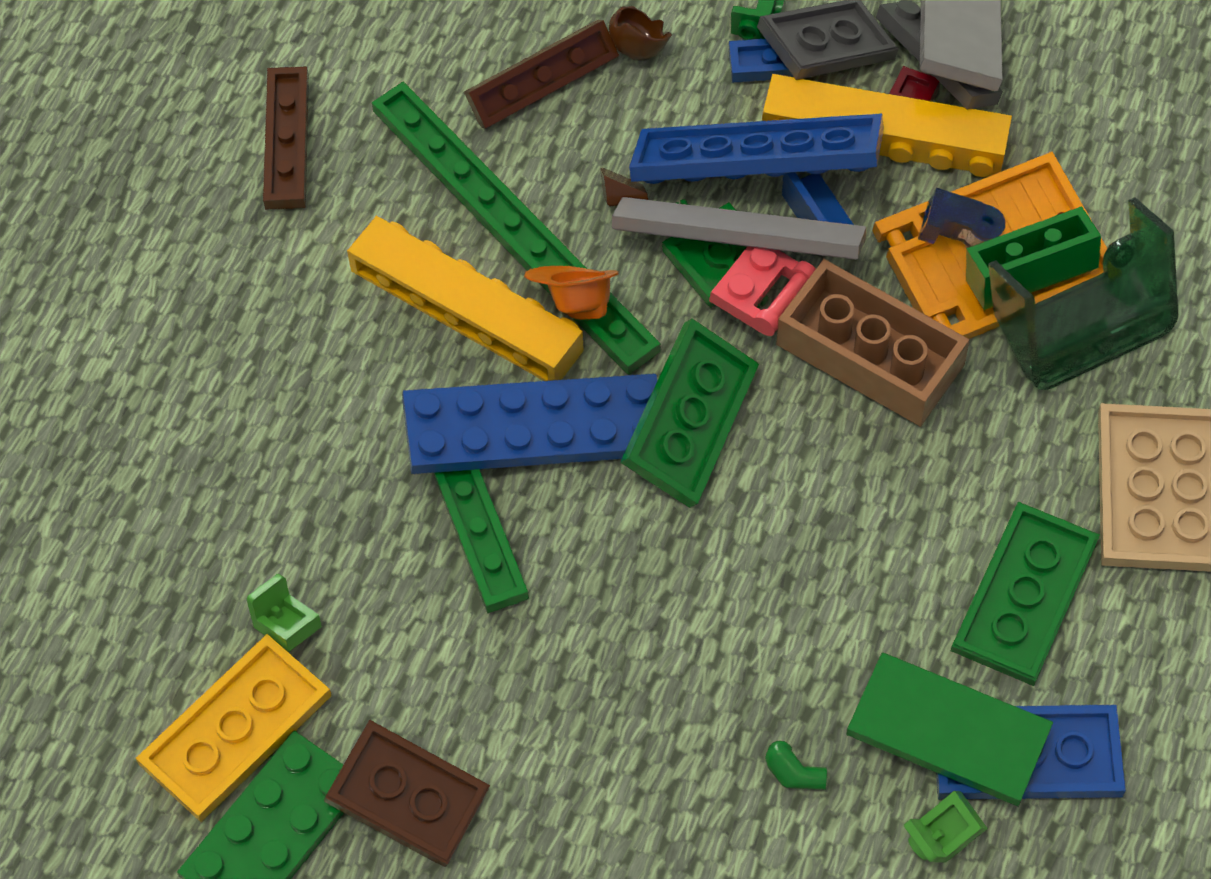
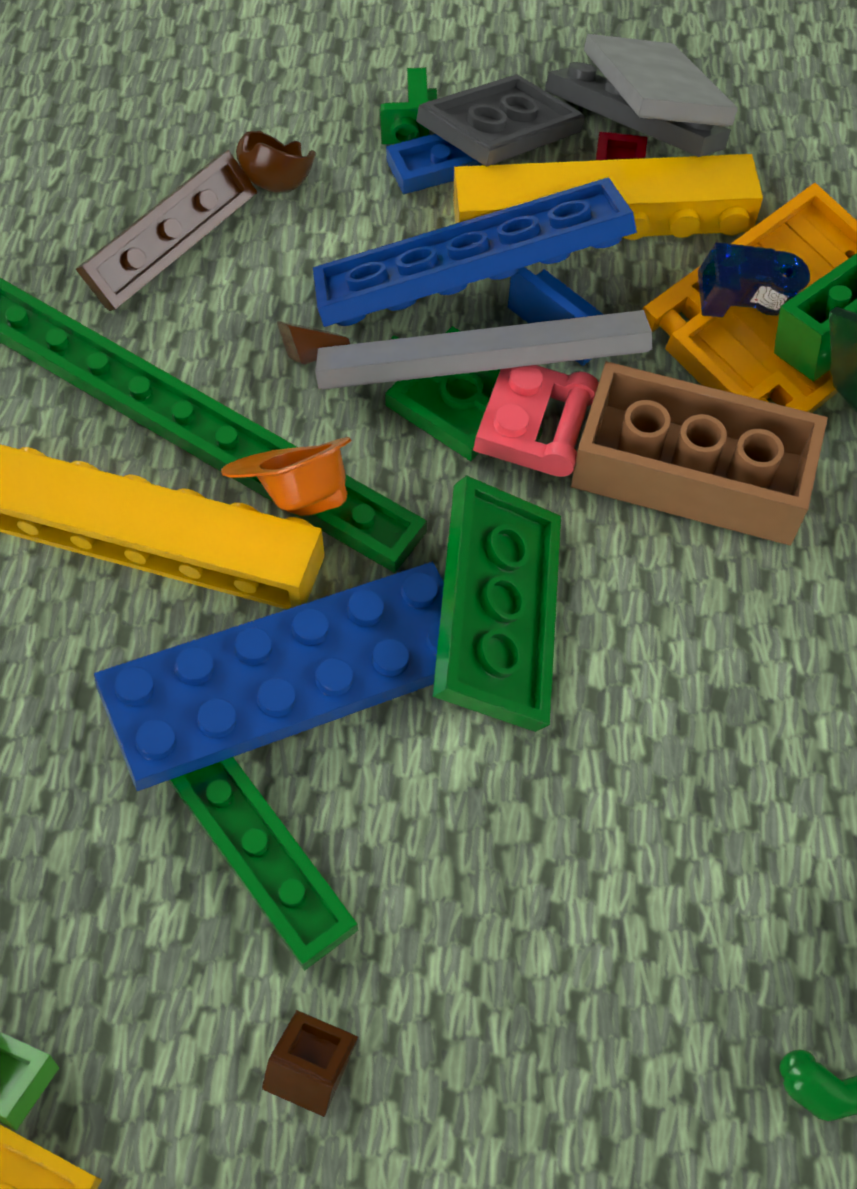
camera: 20 degrees left, 0 degrees up
(473, 666) = (309, 1062): none -> reddish brown slope

